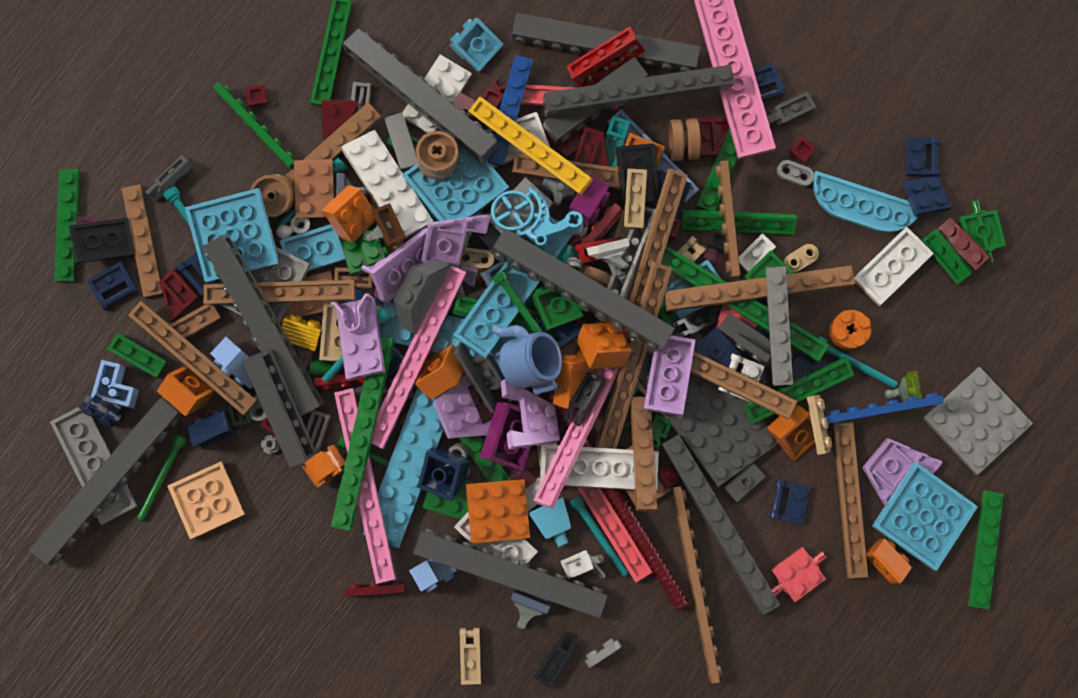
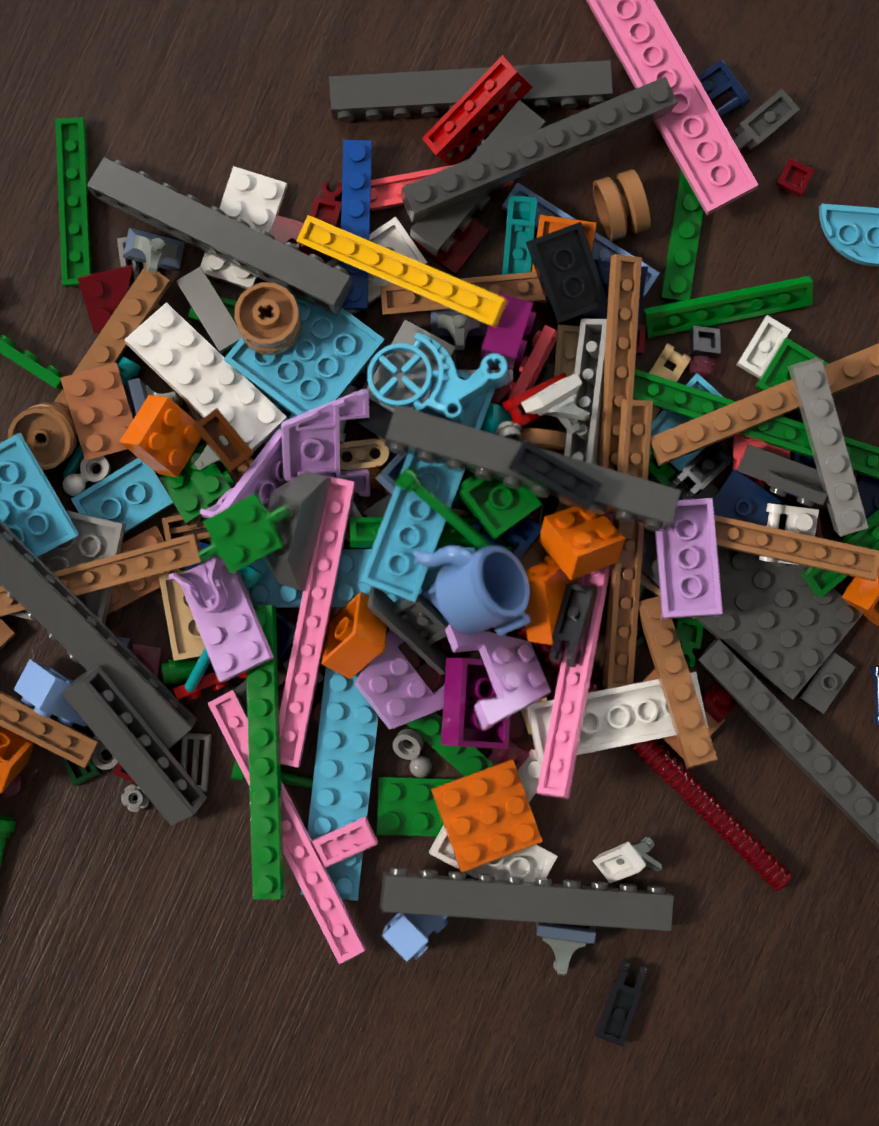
camera: 10 degrees left, 5 degrees up
(206, 500) = (64, 901): light nougat plate -> none
(210, 430) = (43, 800): dark blue slope -> none
(302, 332) = (138, 625): yellow brick -> none
(324, 466) = (222, 812): orange brick -> none
(358, 590) = (315, 976): dark red plate -> none
(374, 95) = (153, 250): none -> piece
(386, 286) = (243, 533): none -> green plate
(400, 505) = (345, 841): none -> bright pink plate
(443, 473) = (394, 780): dark blue slope -> none
(470, 657) = (499, 1030): tan plate -> none
(475, 43) = (281, 137): medium azure plate -> none
(552, 521) = (570, 813): medium azure torso -> none
(578, 504) = (597, 773): teal piece -> none
(592, 148) = (490, 251): dark red wing -> none
(595, 297) = (555, 475): none -> black plate
(609, 647) = (678, 985): light grey plate -> none
(615, 532) = (663, 802): coral plate -> none
(635, 198) = (573, 310): tan plate -> none
(698, 592) = (799, 856): medium nougat plate -> none
(712, 135) = (660, 187): dark red wing -> none
(728, 226) = (710, 295): medium nougat plate -> none
(795, 173) = (791, 214): light grey plate -> none
(801, 258) = (831, 336): tan plate -> none

